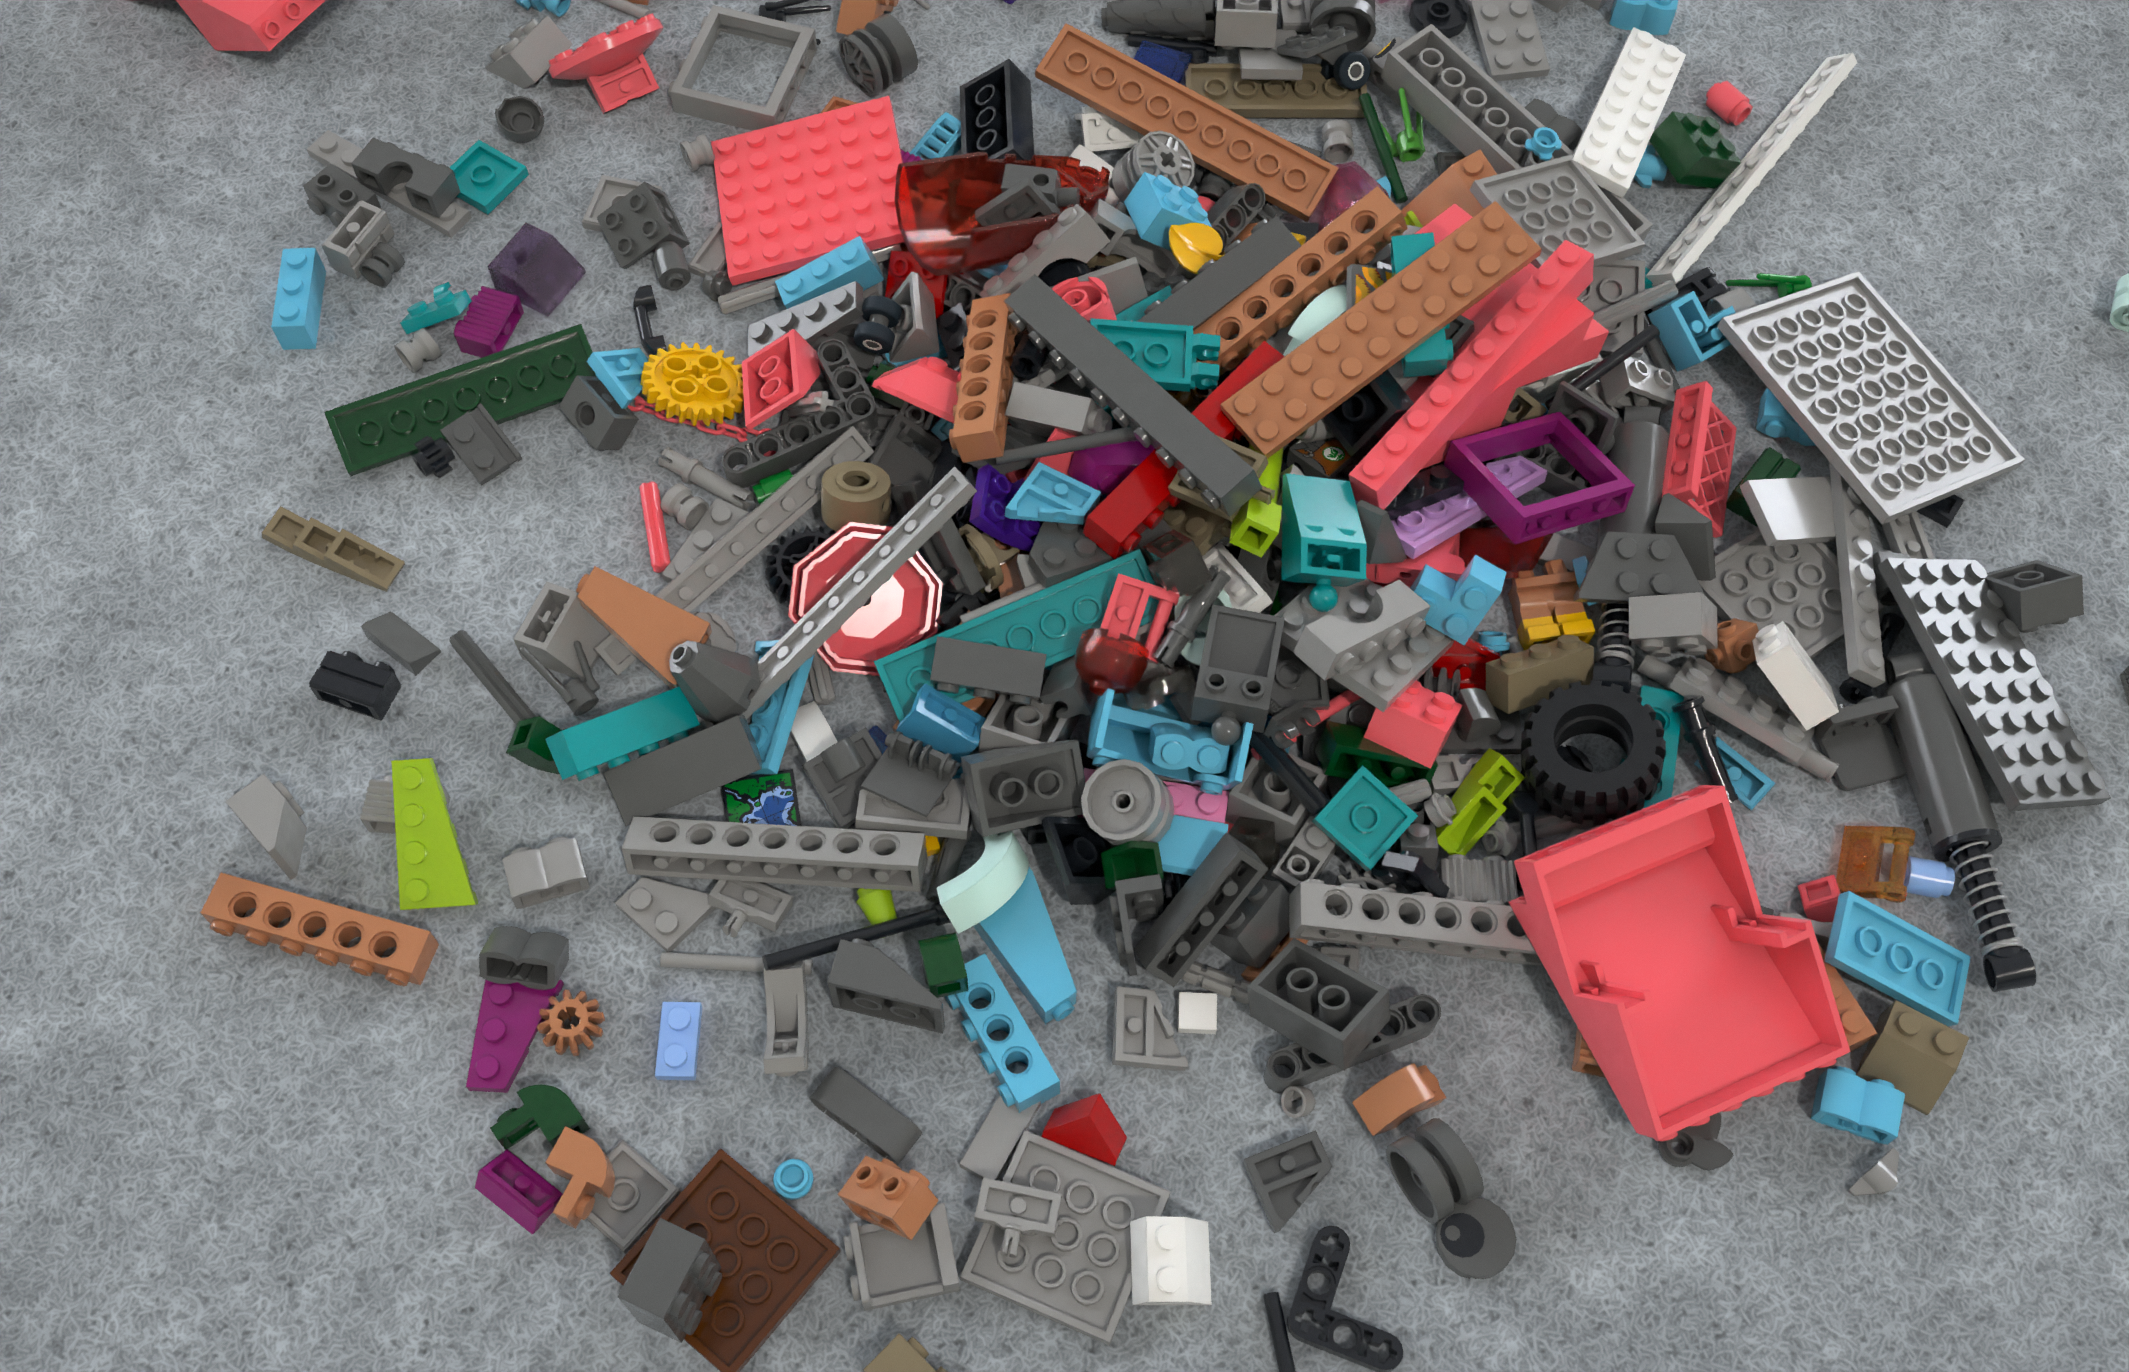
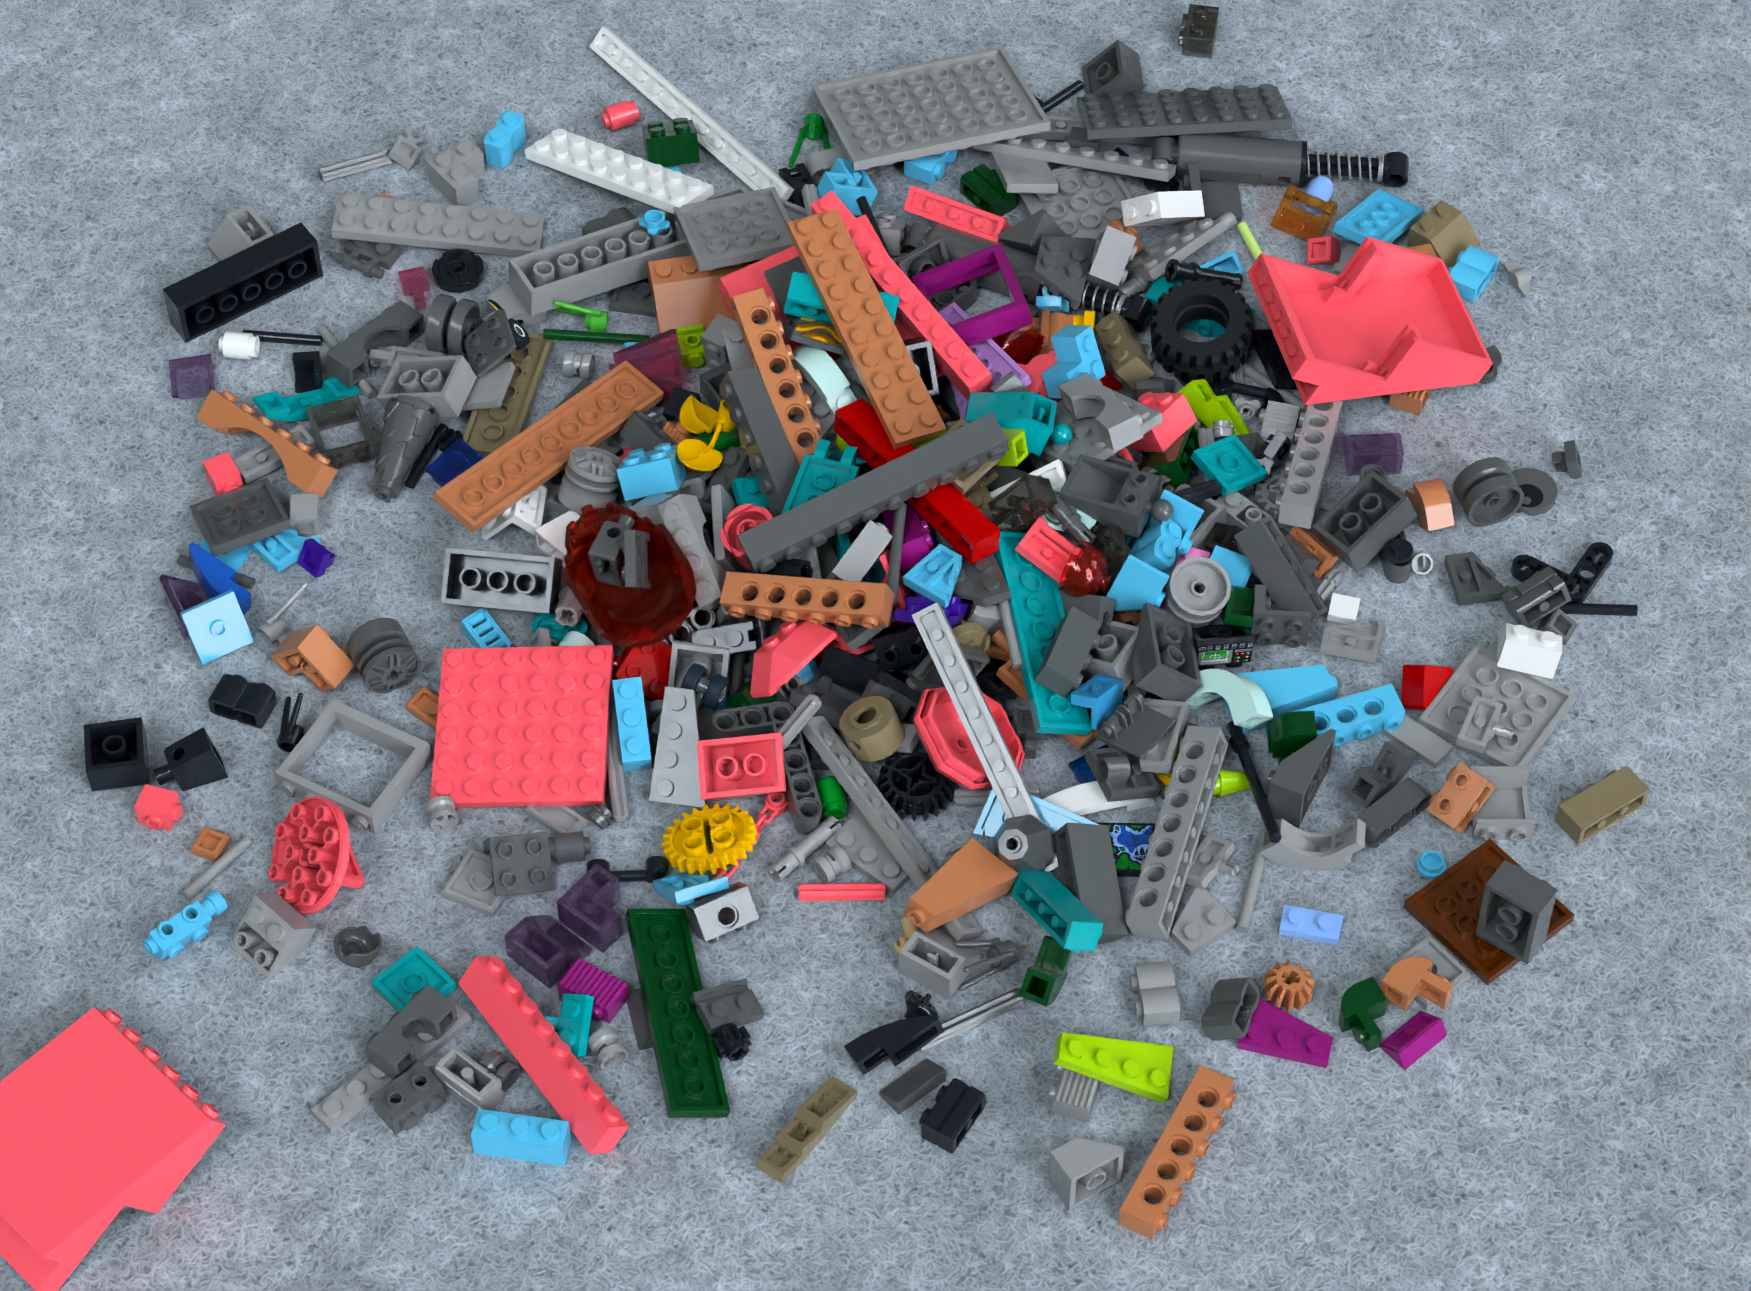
camera: 75 degrees left, 10 degrees down
(396, 294) = (543, 1054): none -> coral brick
(438, 603) = (893, 1041): none -> black slope
(500, 627) = (918, 1005): none -> black piece
(586, 292) = (589, 910): none -> clear purple brick
(919, 1093) = (1385, 773): none -> dark grey brick
(1238, 1305) = (1559, 624): none -> dark grey slope
(1265, 1262) = (1536, 597): none -> dark grey brick
(1287, 1058) = (1398, 551): none -> black plate
(1480, 1009) = (1372, 447): none -> clear purple slope
(1545, 1289) = (1568, 460): none -> dark grey tile
(1791, 817) = (1249, 240): none -> yellowish green bar
(1962, 539) = (1062, 96): none -> black bar

